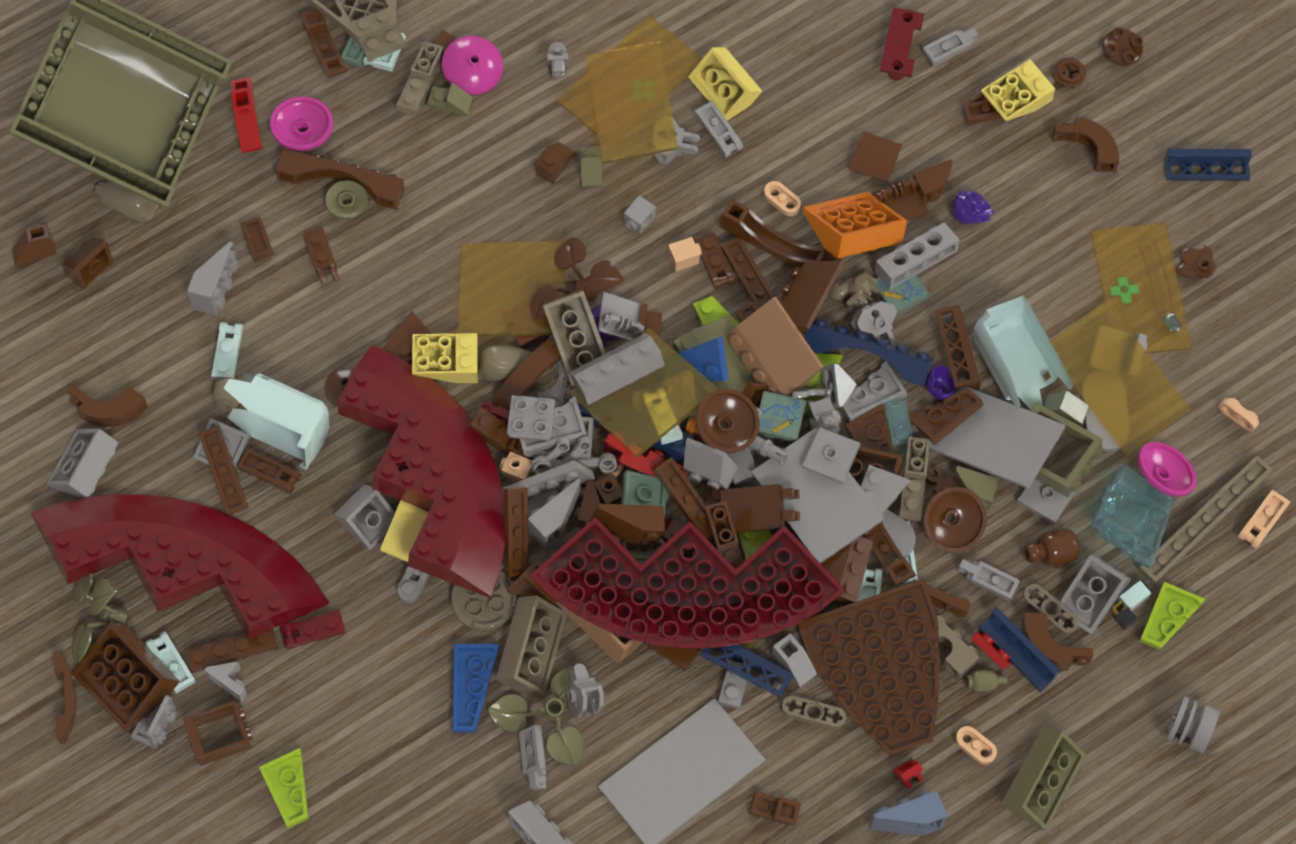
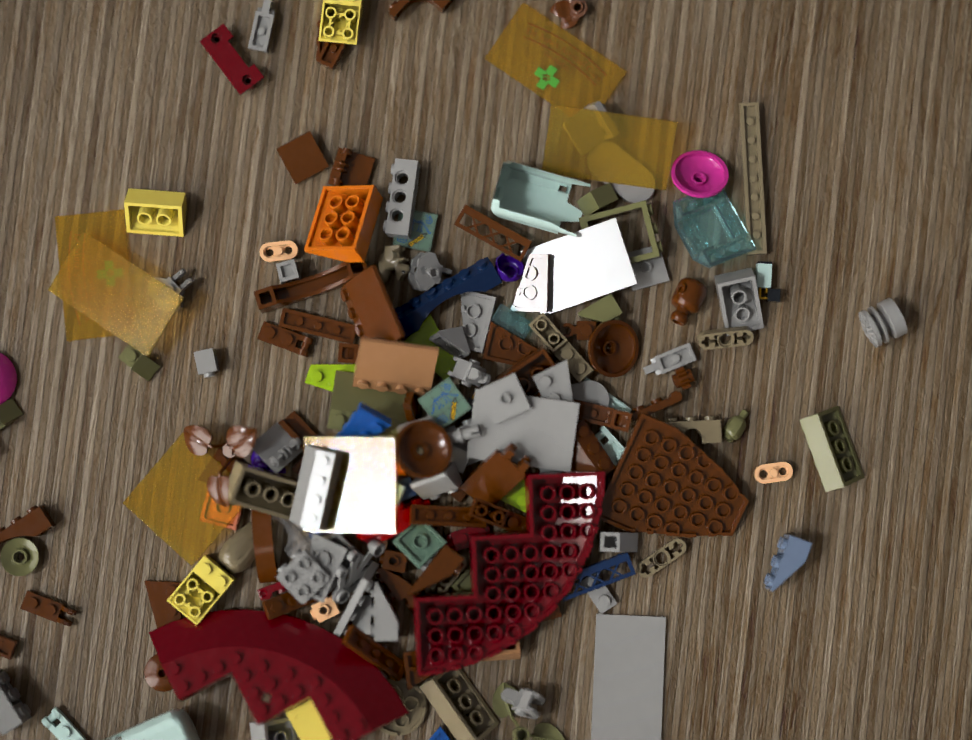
camera: 45 degrees left, 20 degrees up
(553, 161) = (113, 384): reddish brown slope -> none
(557, 59) = (36, 316): light grey hips -> none
(684, 254) = (263, 356): light nougat brick -> none
(718, 129) = (186, 248): light grey plate -> none
(774, 214) = (288, 271): none -> light grey brick
(774, 809) = (703, 639): reddish brown slope -> none
(802, 393) = (442, 361): light grey piece -> none
(907, 771) = (753, 533): red tile -> none
(933, 181) = (356, 136): reddish brown slope -> none
(970, 208) = (398, 127): dark purple hair -> none
(984, 600) = (682, 378): none -> reddish brown gear
(999, 656) = (719, 405): red plate -> none
(1023, 652) = (734, 387): dark blue fence -> none
(1035, 629) = (739, 367): reddish brown arch -> none
(1169, 614) = (793, 262): lime wing -> none
(1172, 322) = (599, 69): clear light blue tile -> none
(1243, 417) = (693, 87): light nougat plate -> none
(1264, 518) = (785, 139): light nougat plate -> none

